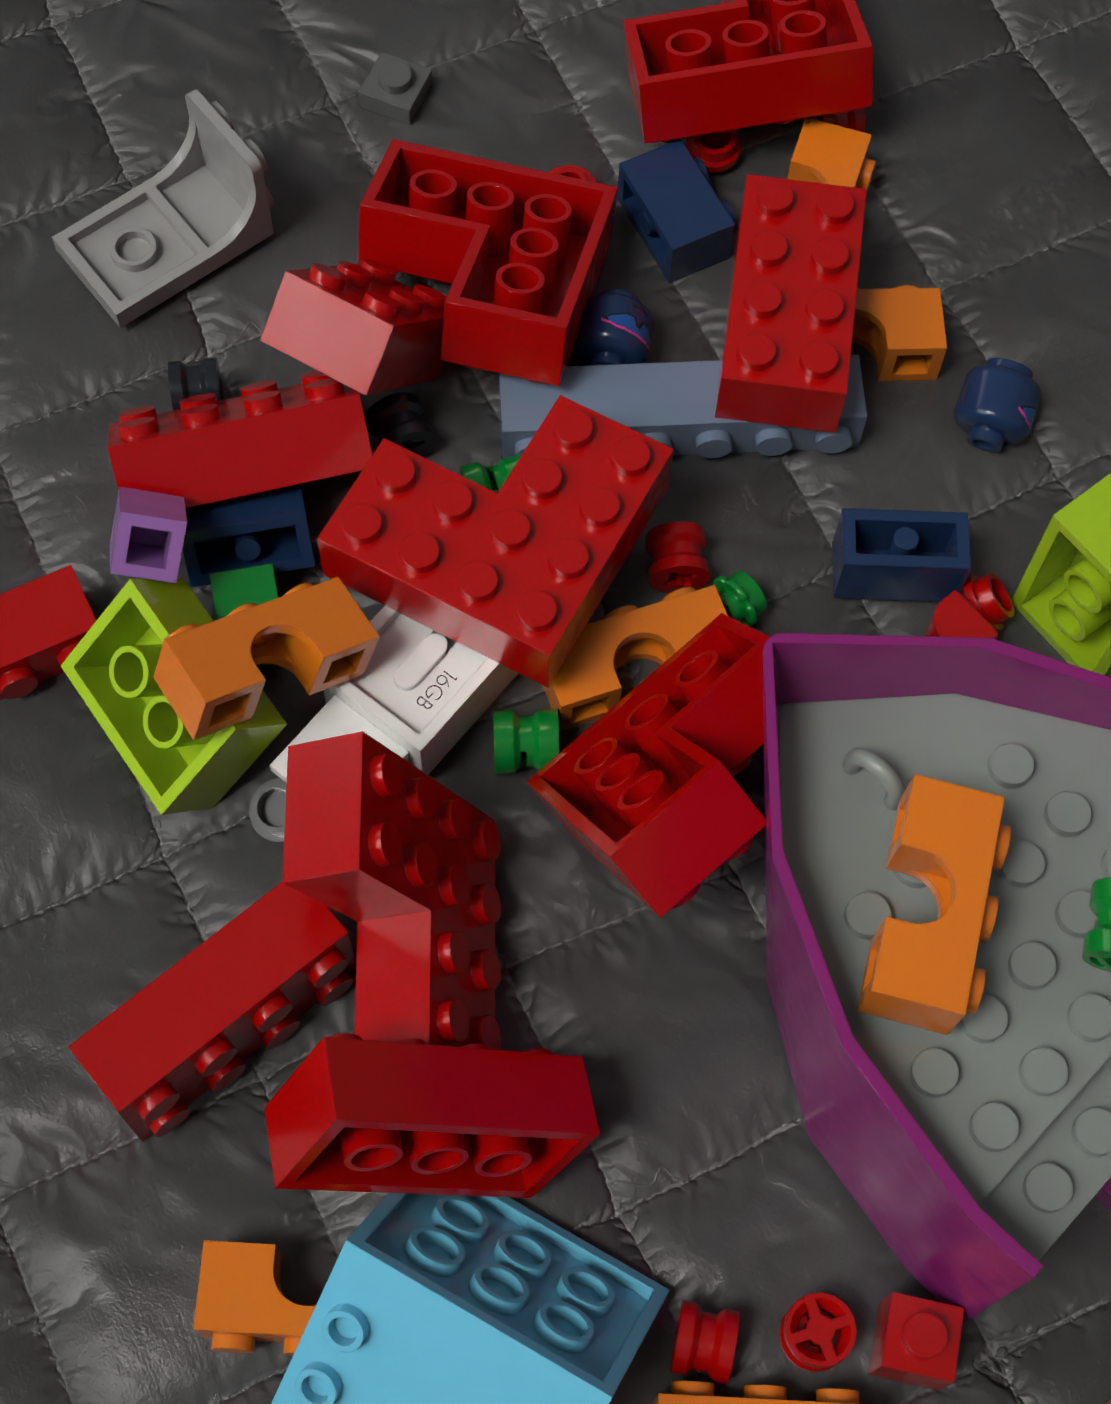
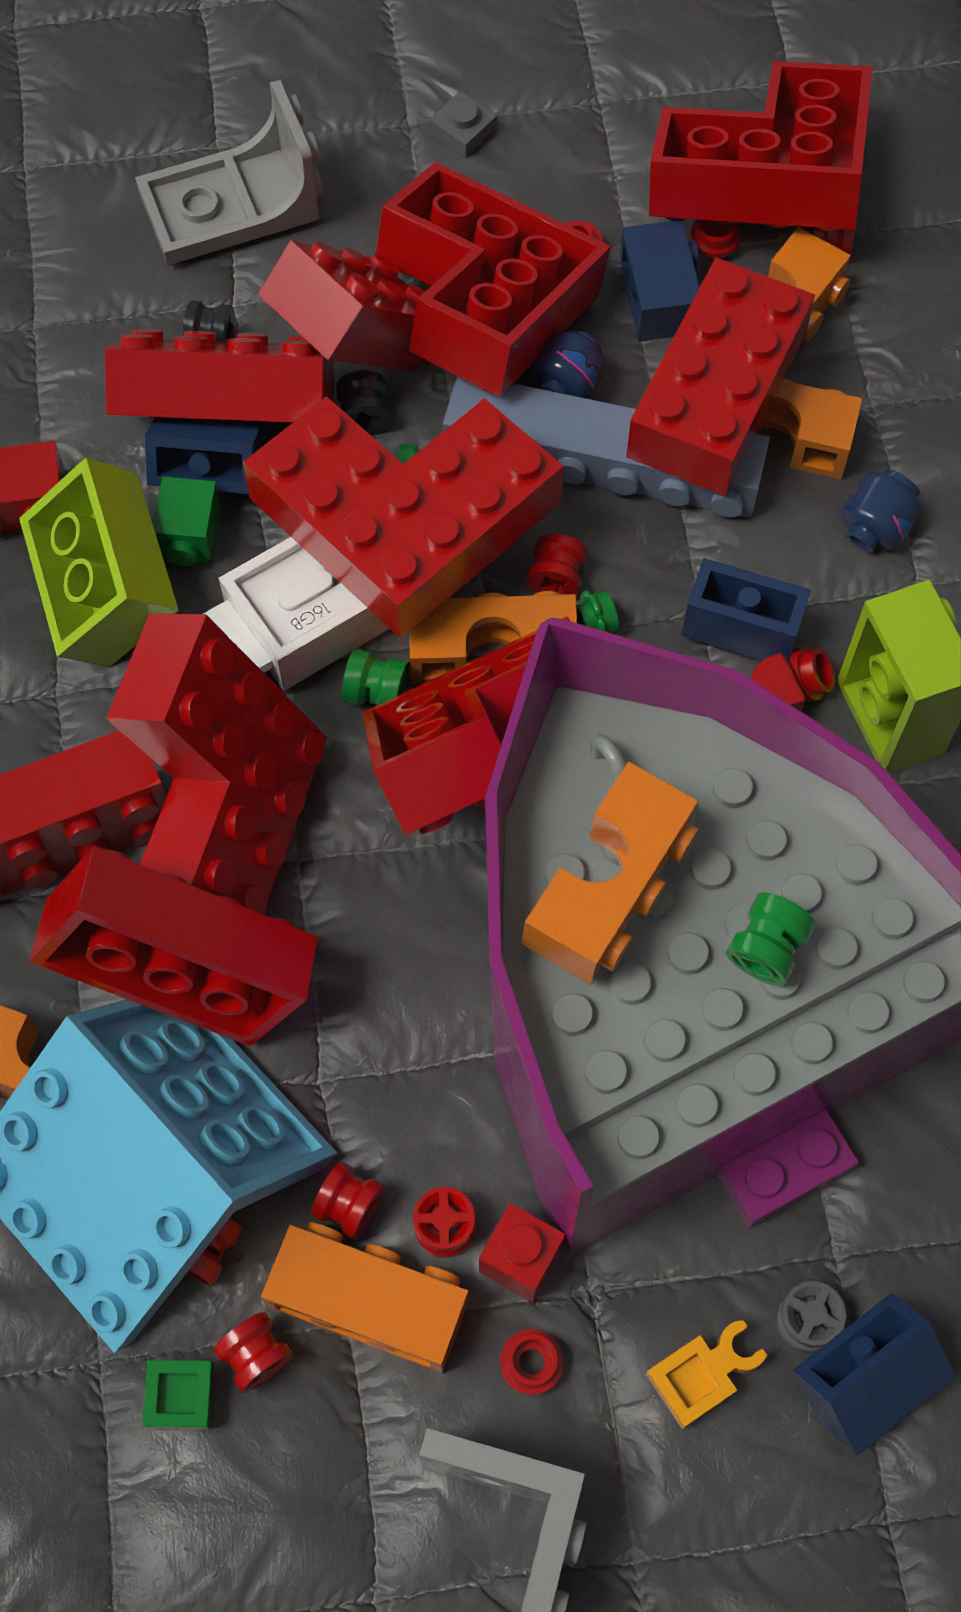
camera: 20 degrees right, 0 degrees up
(147, 535) = (113, 427): medium lavender brick -> none
(310, 631) = (213, 535): orange arch -> none

